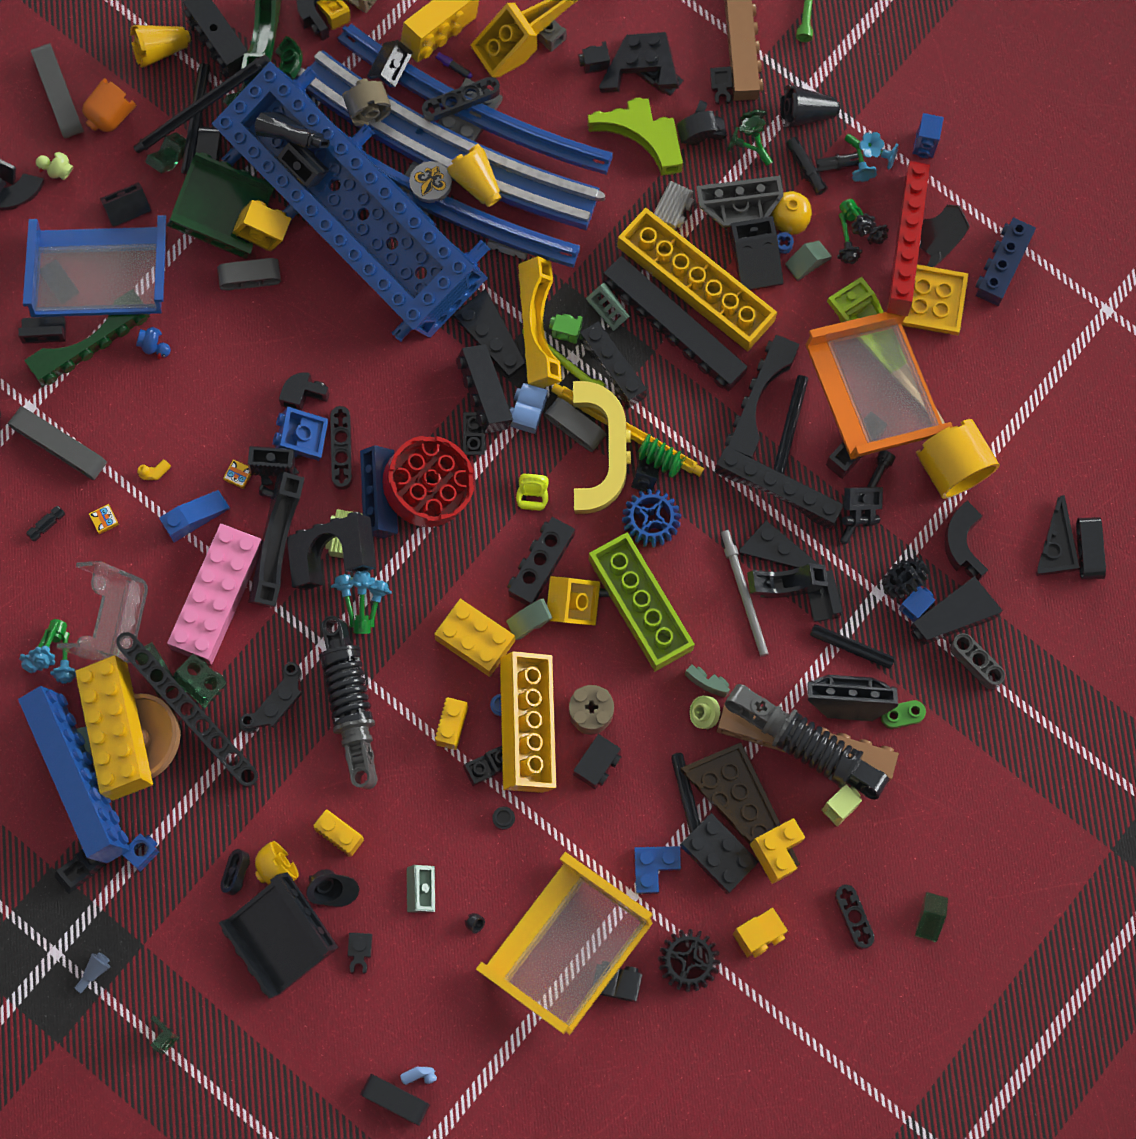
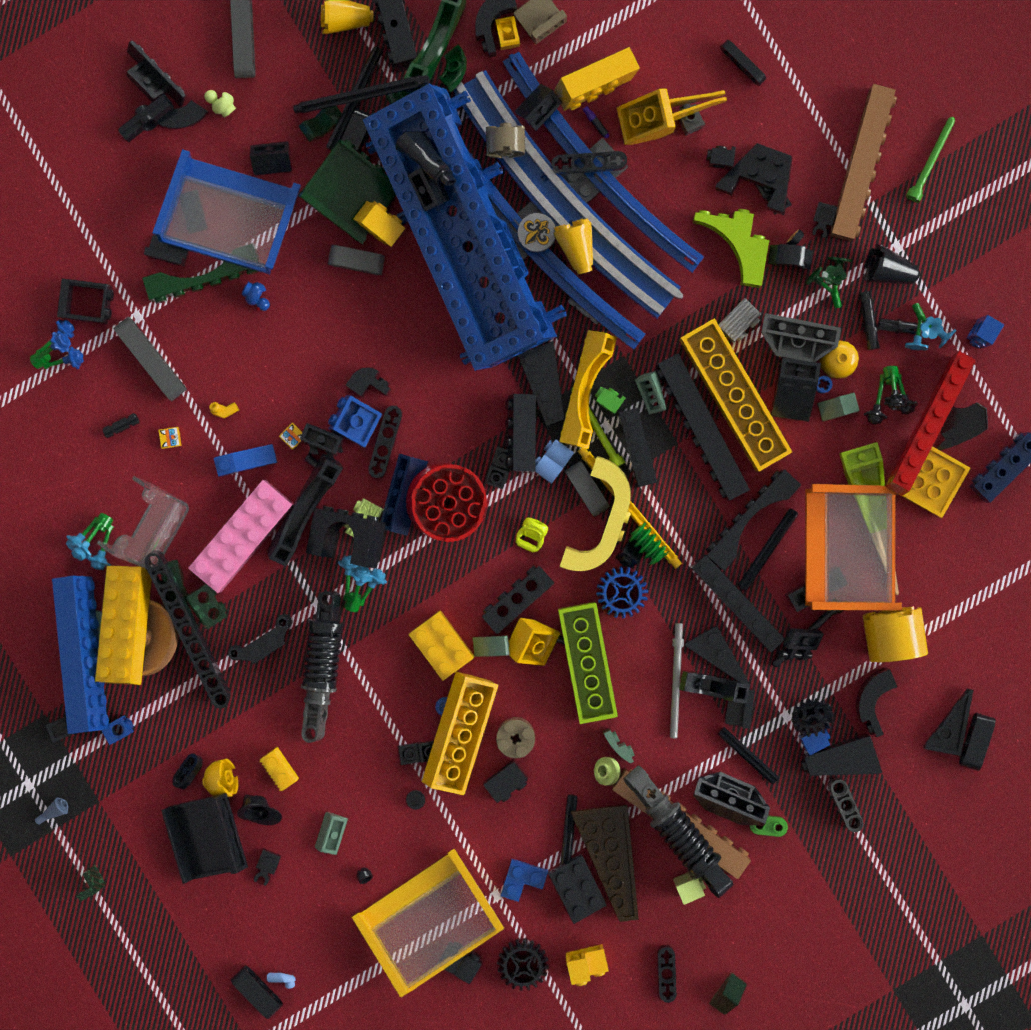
camera: 20 degrees right, 15 degrees up
(106, 107) = (280, 64): orange cylinder -> none
(451, 723) = (398, 710): yellow brick -> none
(772, 850) = (620, 903): yellow brick -> none

